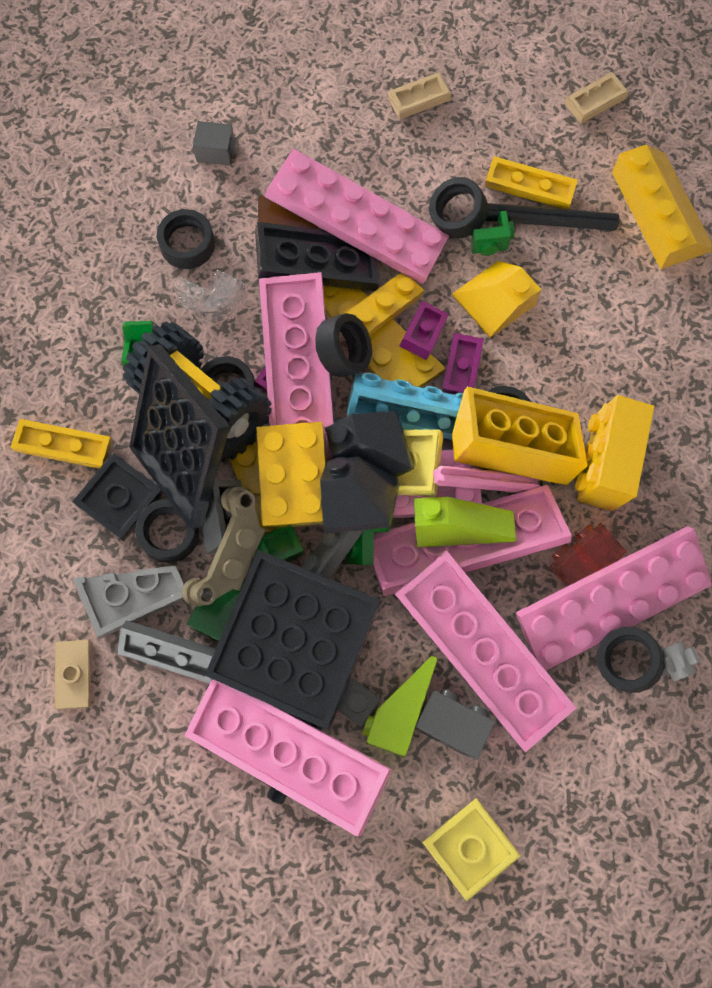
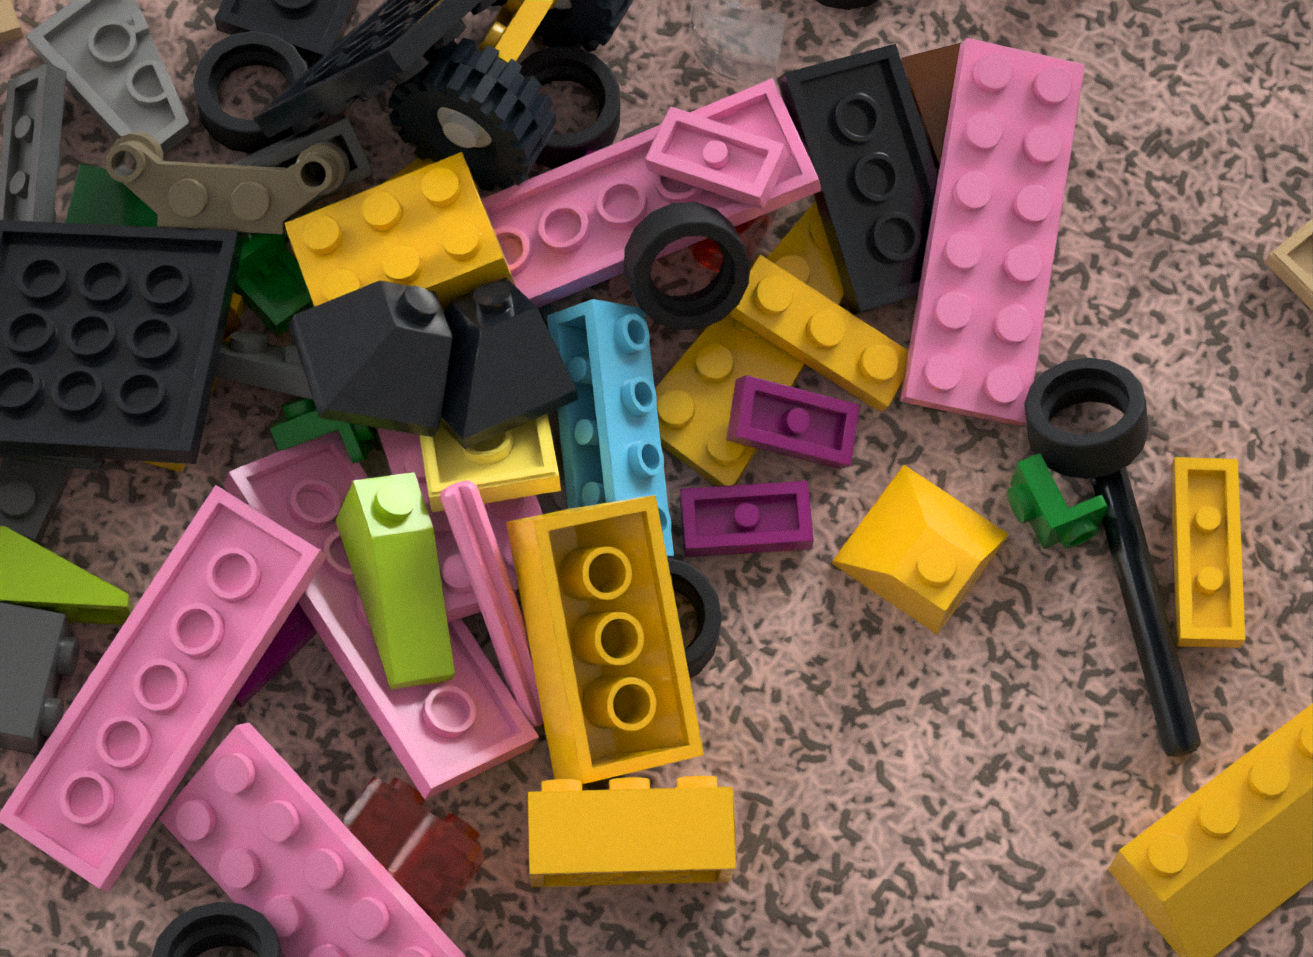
camera: 70 degrees right, 5 degrees down
(296, 312) = (716, 157): none -> bright pink plate

